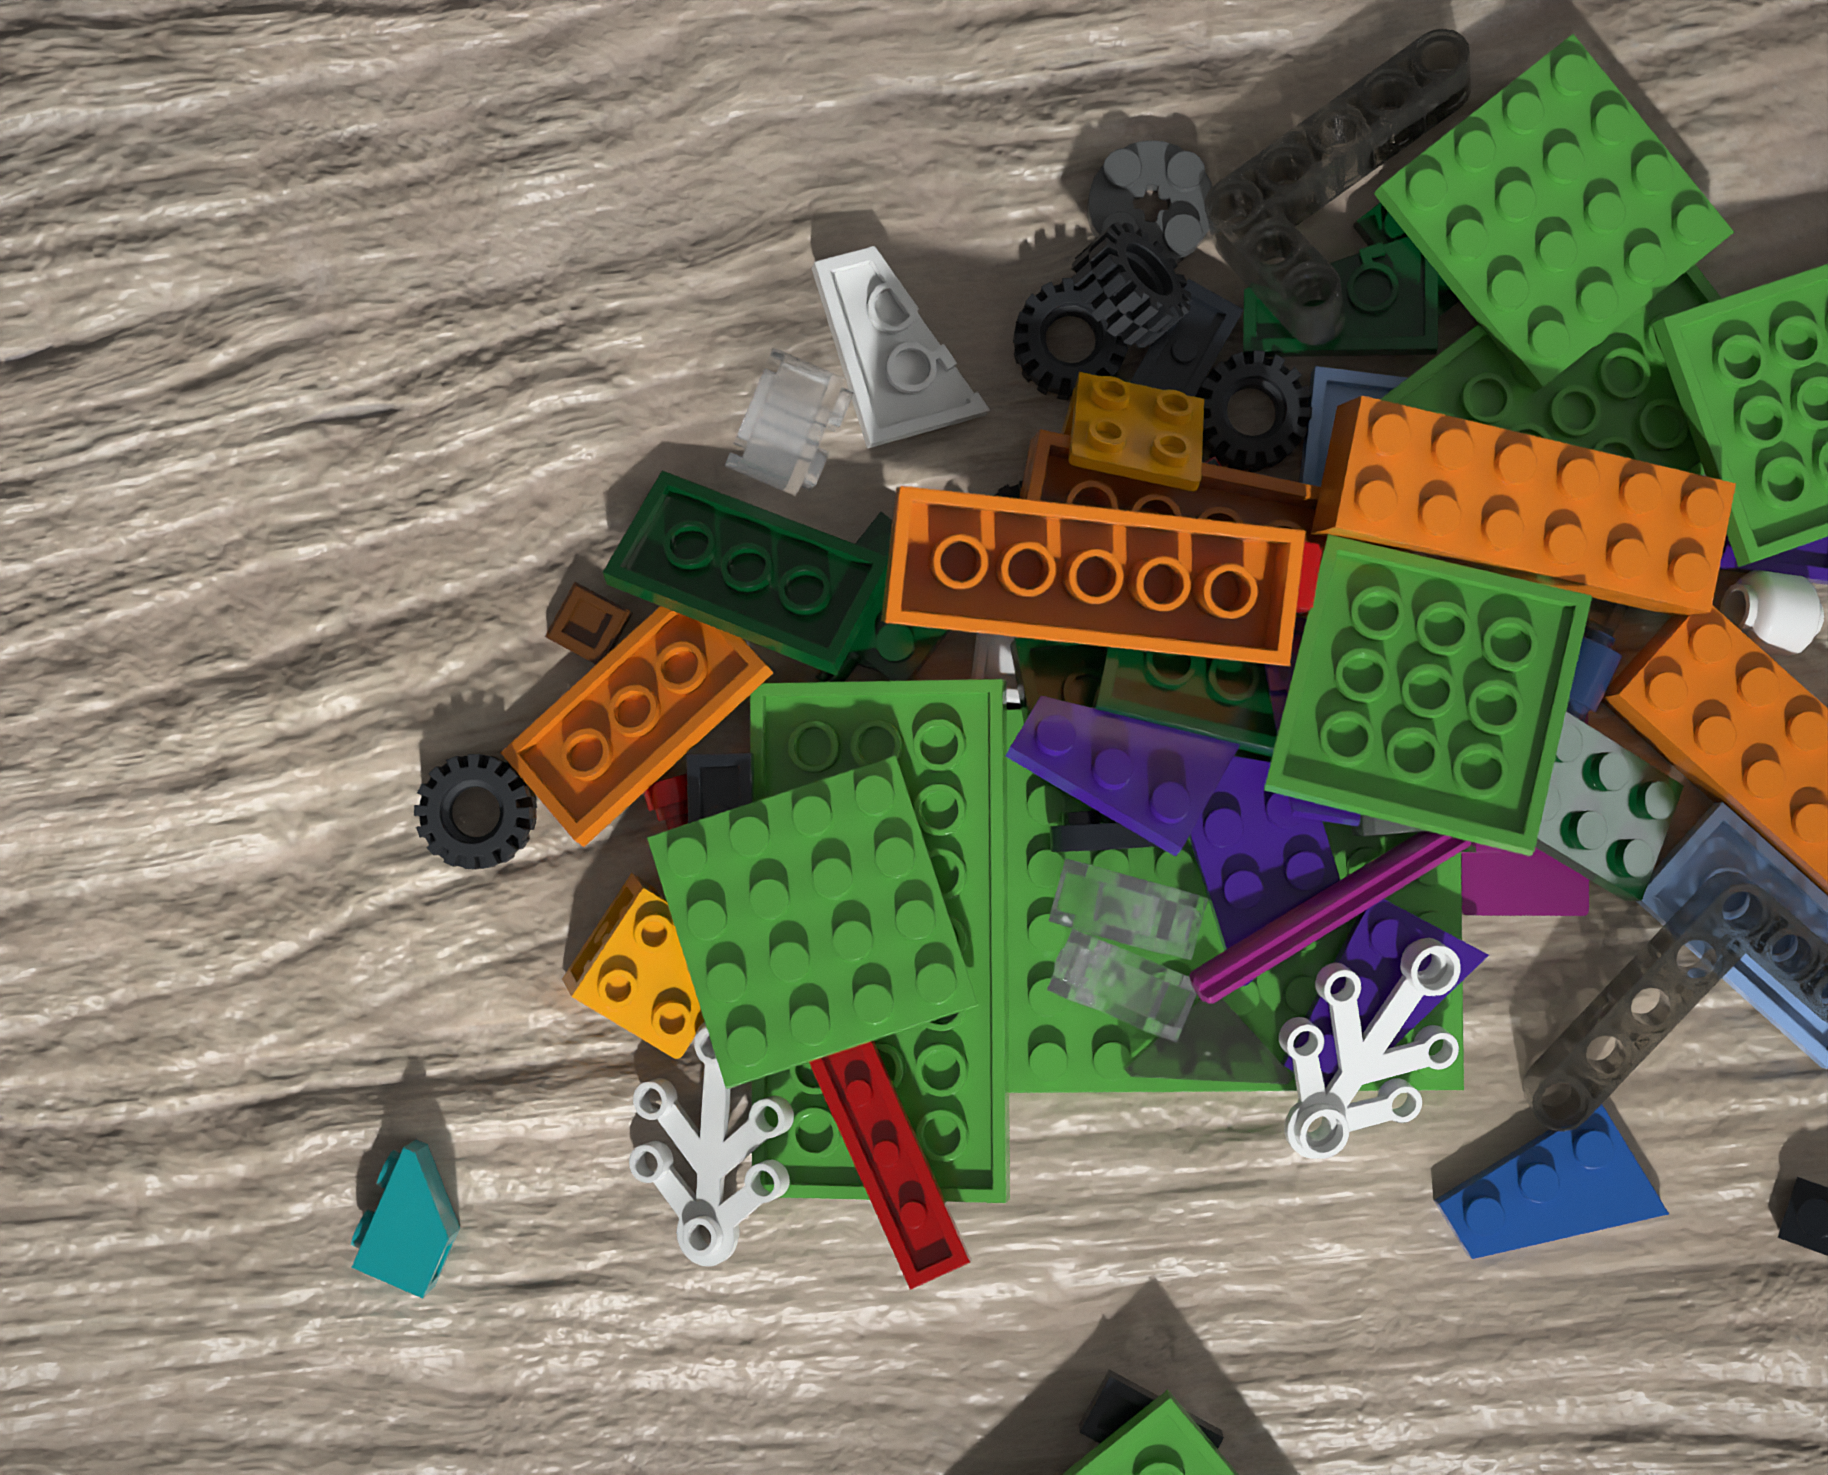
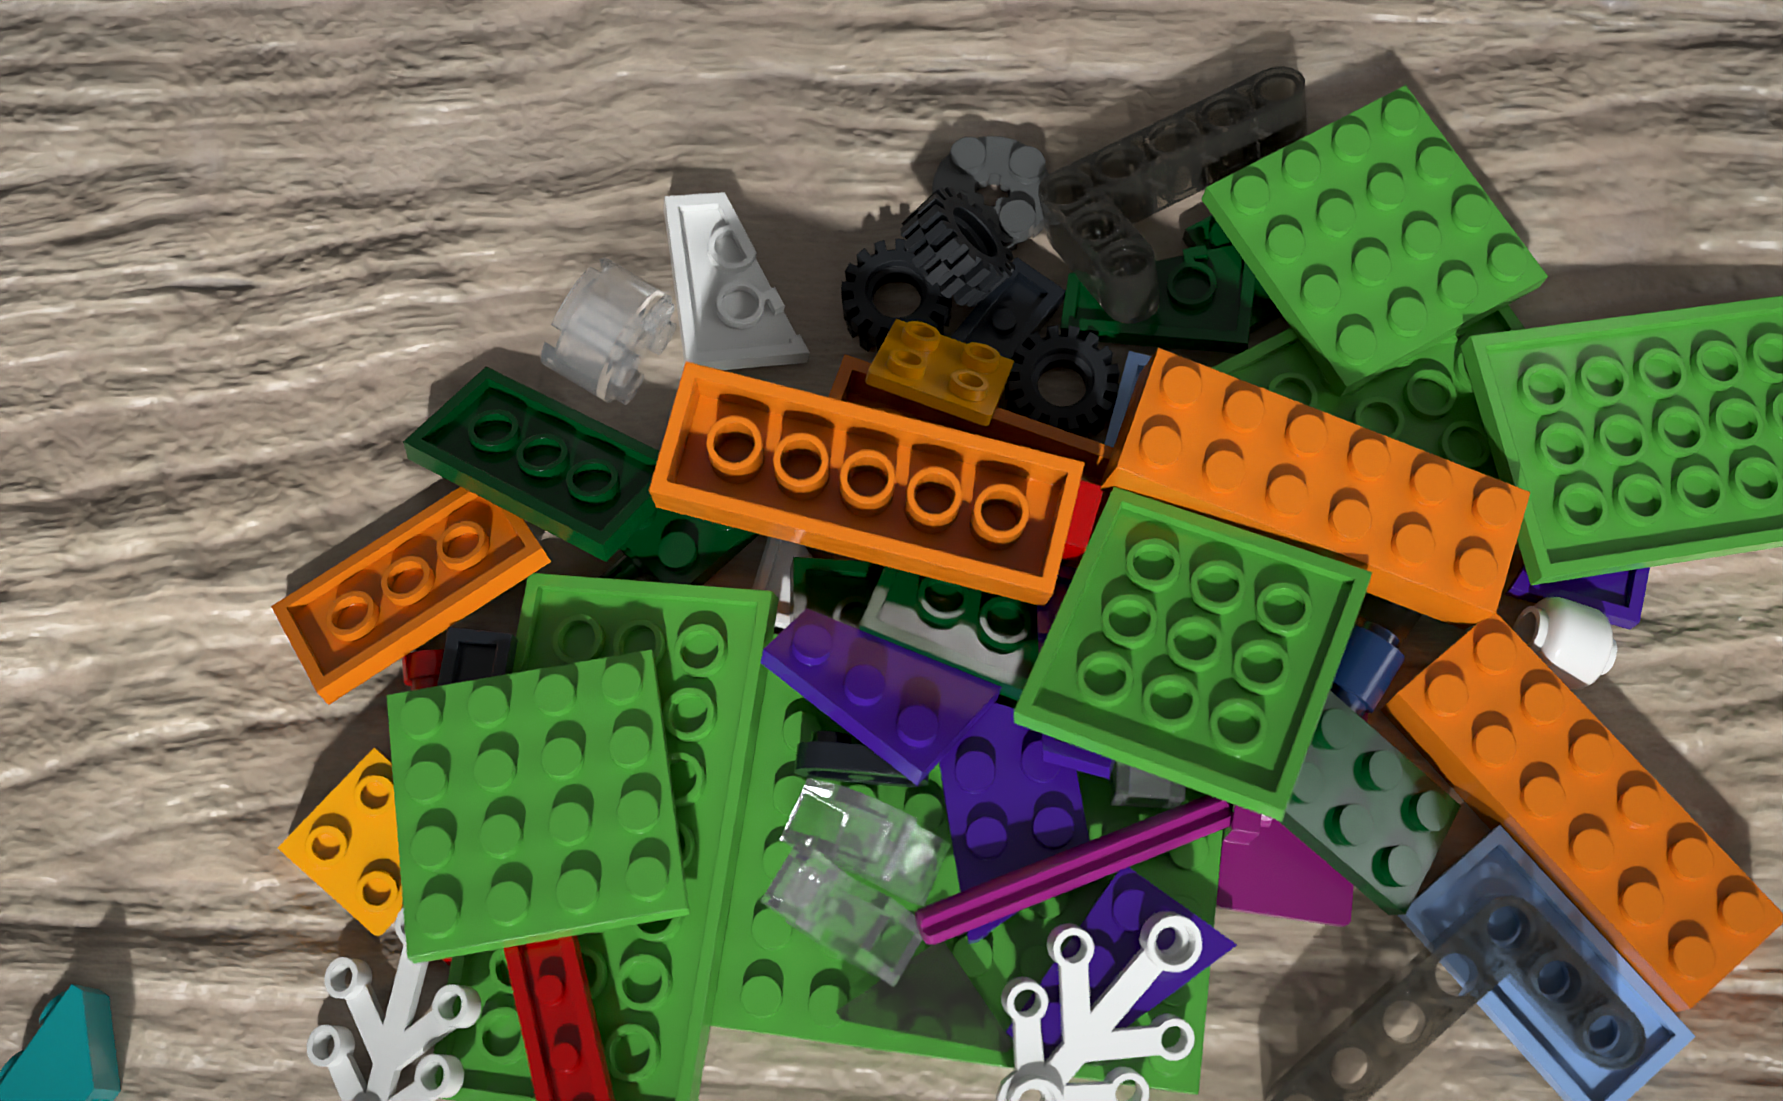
camera: 10 degrees right, 15 degrees down
(437, 817) = (205, 639): black tyre -> none
(588, 624) = (386, 498): reddish brown tile -> none

